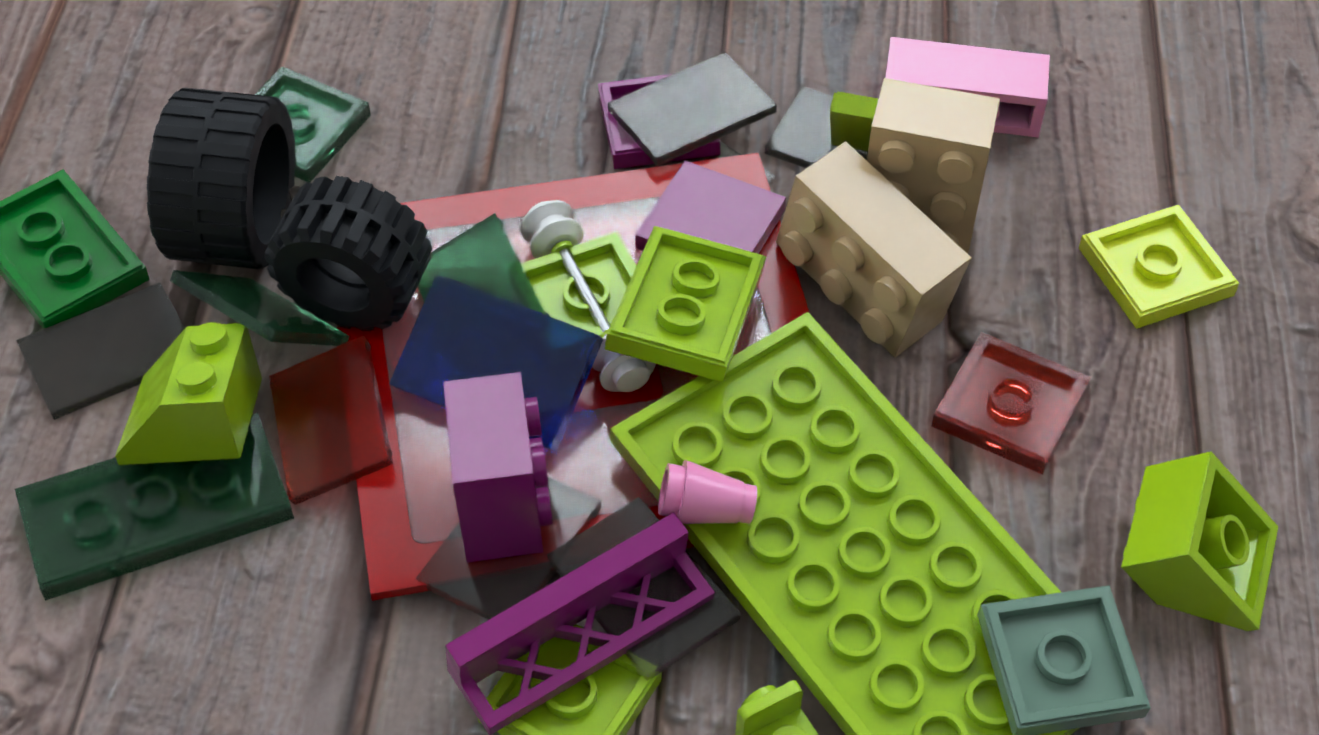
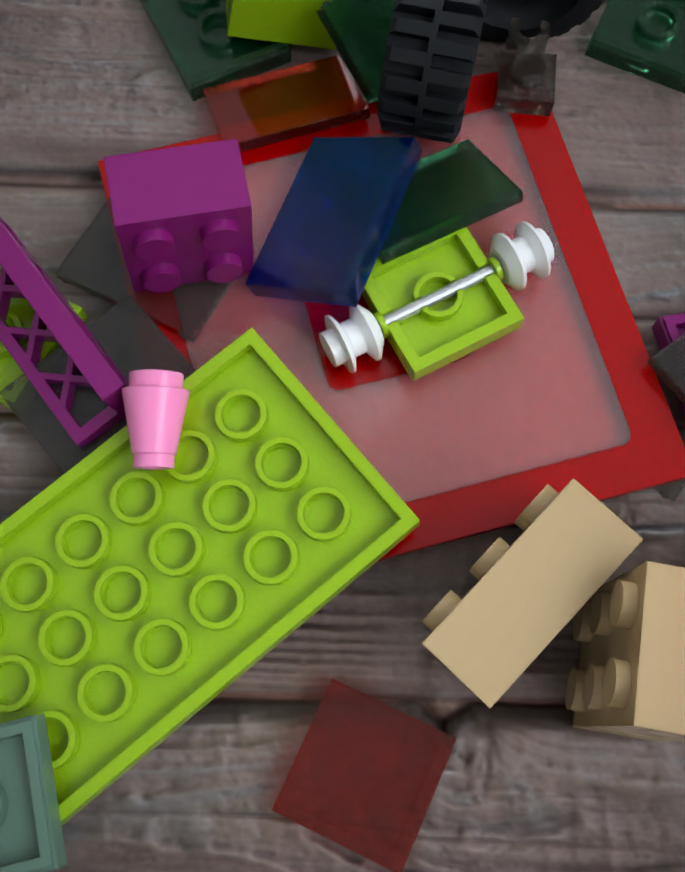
camera: 85 degrees right, 20 degrees up
(686, 303) = (418, 389): lime tile -> none
(714, 209) = (569, 421): tile -> none

